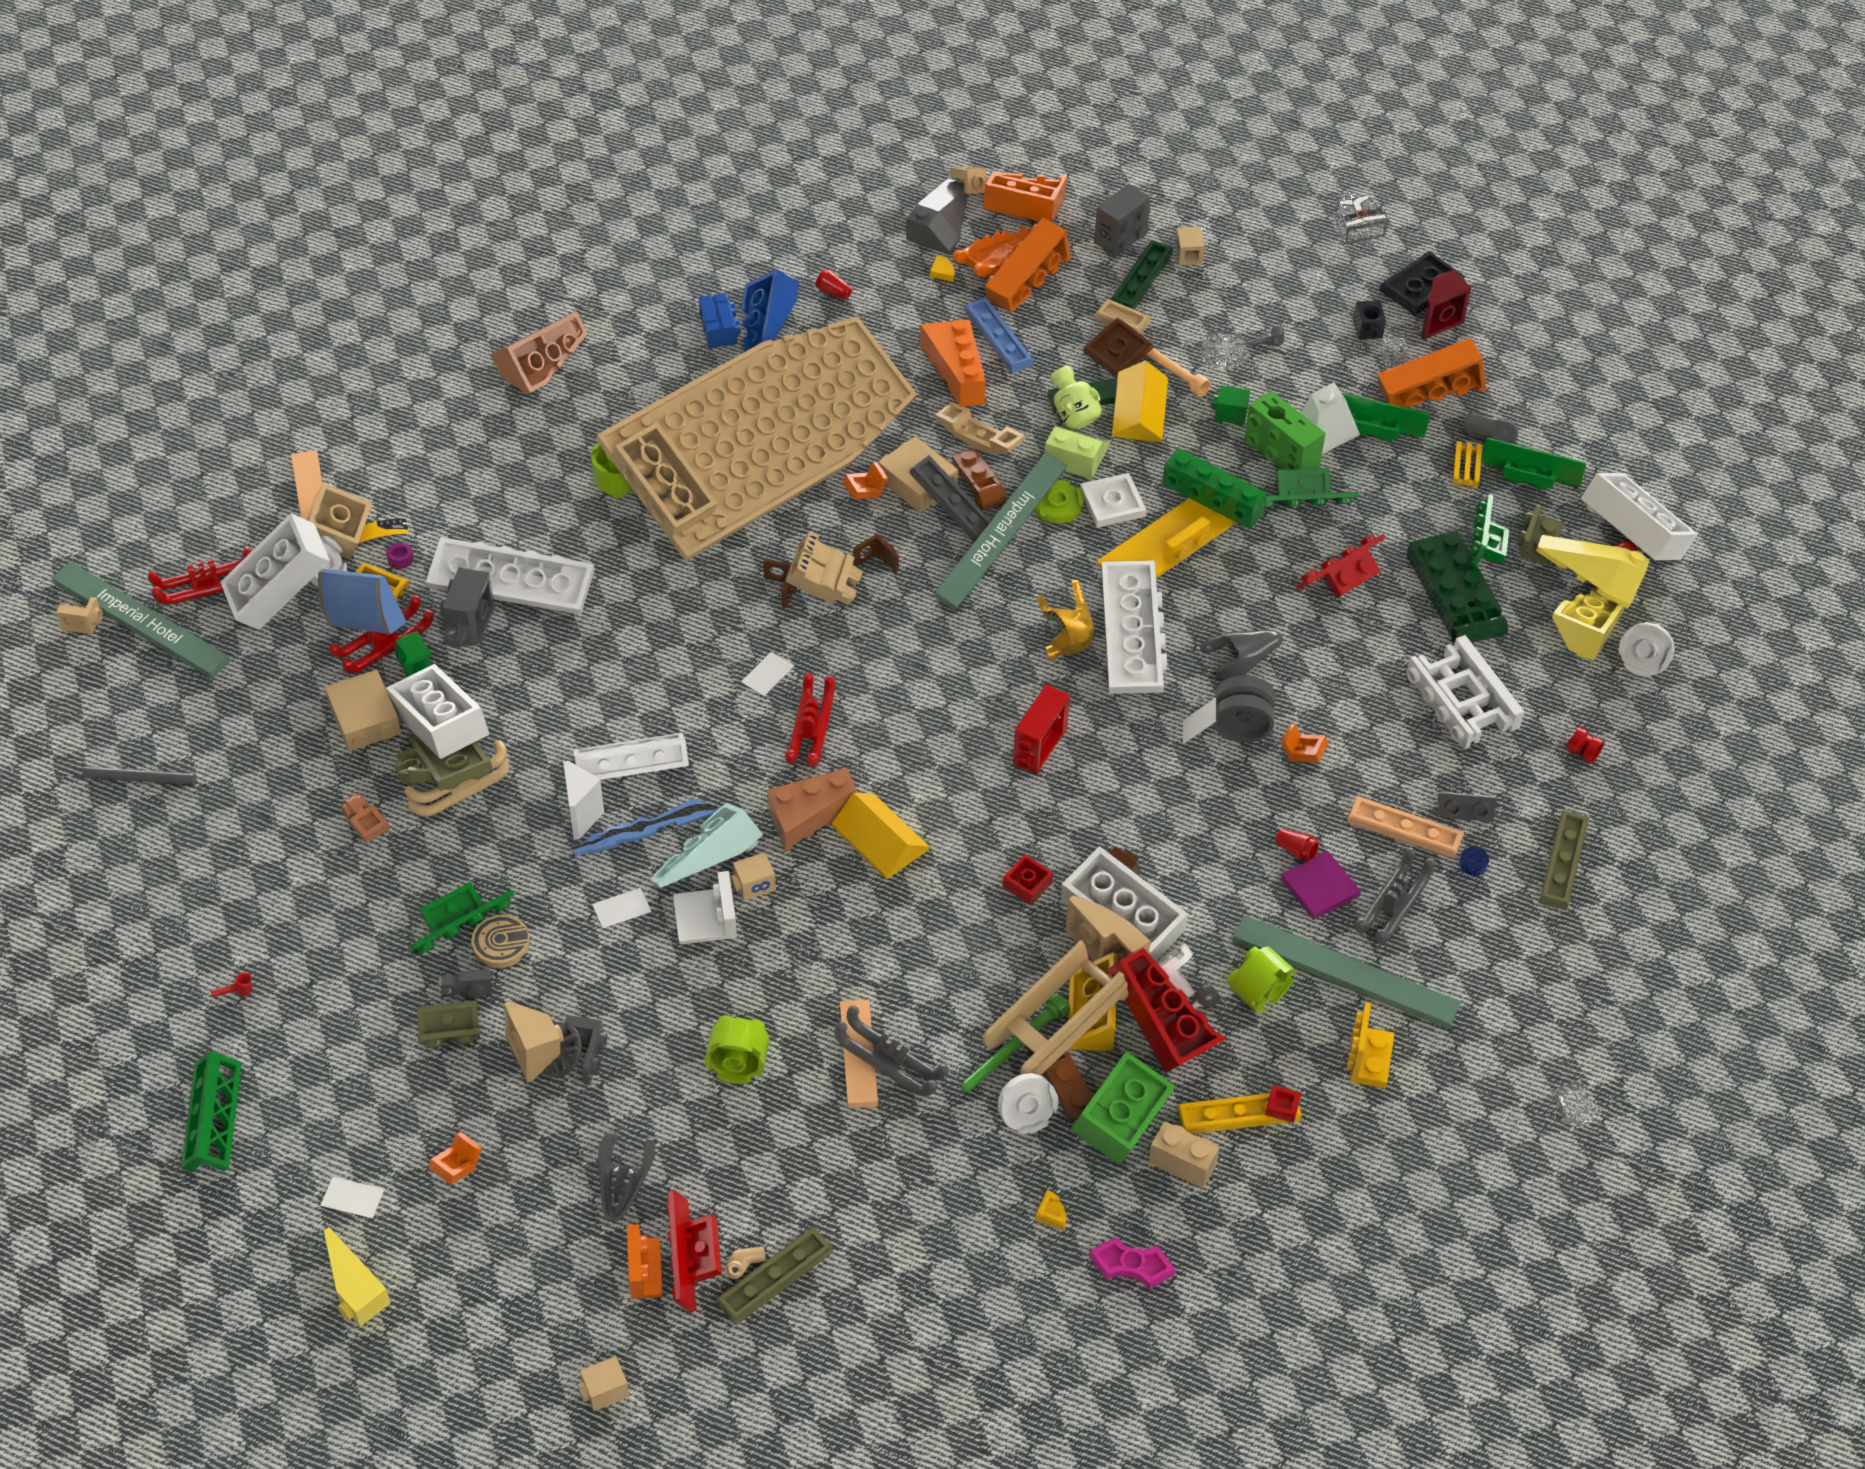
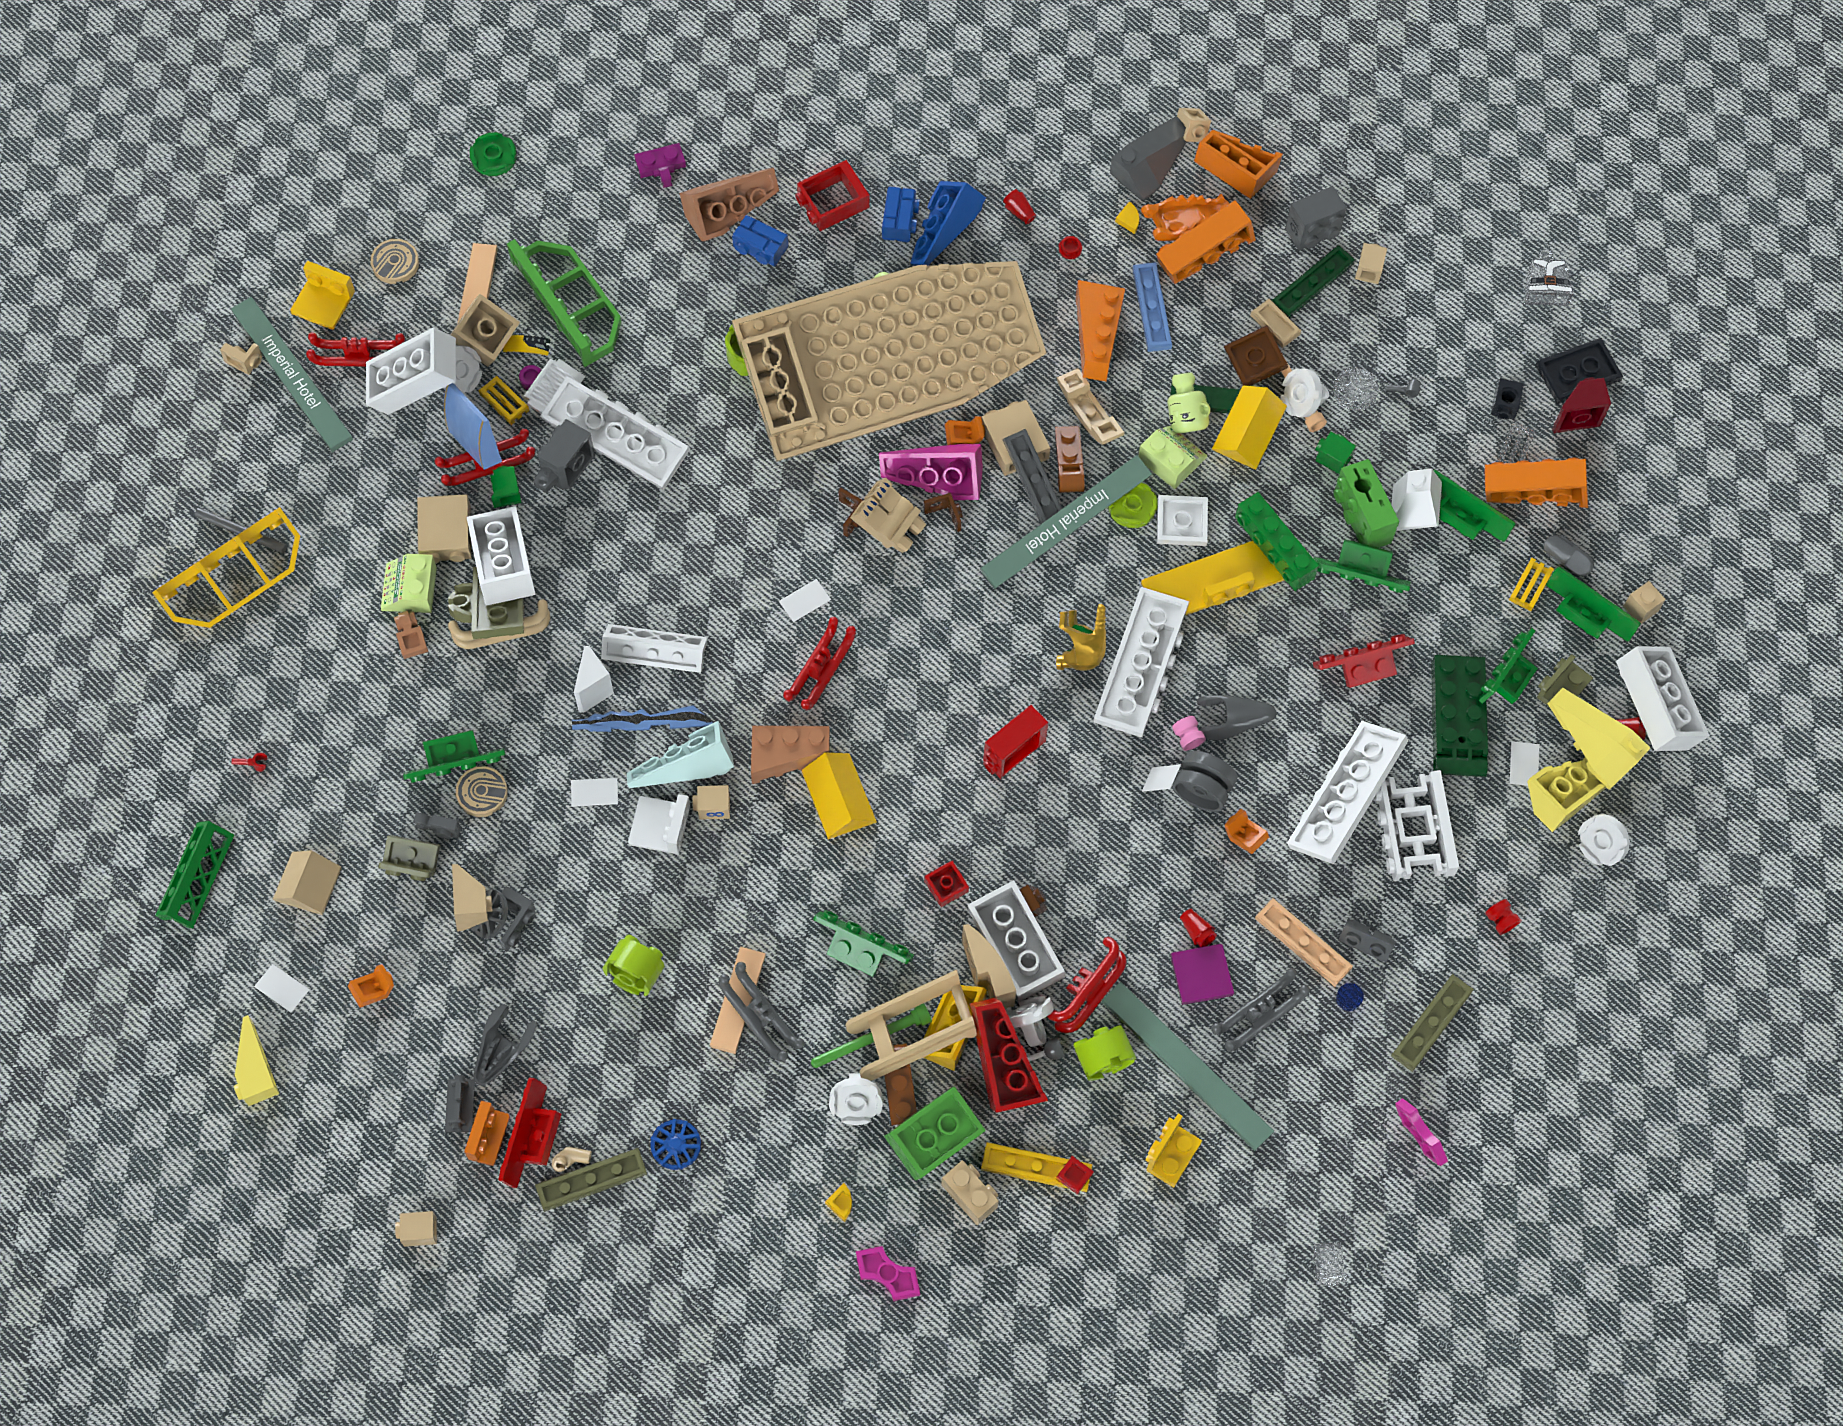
camera: 20 degrees right, 15 degrees up
(136, 790) = (211, 562): none -> yellow plate
(149, 537) = (323, 295): none -> yellow bracket
(213, 492) = (394, 261): none -> tile
(280, 375) = (493, 154): none -> green tile
(341, 1082) = (307, 881): none -> tan slope
(344, 770) = (409, 584): none -> yellowish green slope
(403, 482) = (556, 307): none -> bright green plate
(420, 555) = (548, 383): none -> white window
(457, 339) = (660, 162): none -> magenta hinge
(588, 376) = (760, 241): none -> blue brick
(599, 1246) = (459, 1104): none -> dark grey hinge
(656, 304) = (825, 179): none -> red window
(851, 1211) = (675, 1144): none -> blue wheel
(853, 520) = (937, 469): none -> dark pink wedge
(897, 306) = (1070, 247): none -> red plate
(964, 966) = (858, 947): none -> bracket
(1178, 361) = (1303, 392): none -> white tile
(1206, 676) = (1189, 733): none -> bright pink wheel
(1217, 928) = (1090, 989): none -> red piece
(1386, 679) = (1347, 792): none -> white plate
(1536, 614) = (1523, 762): none -> white sticker
(1580, 444) = (1644, 602): none -> tan brick
(1617, 962) = (1428, 1142): none -> dark pink tile

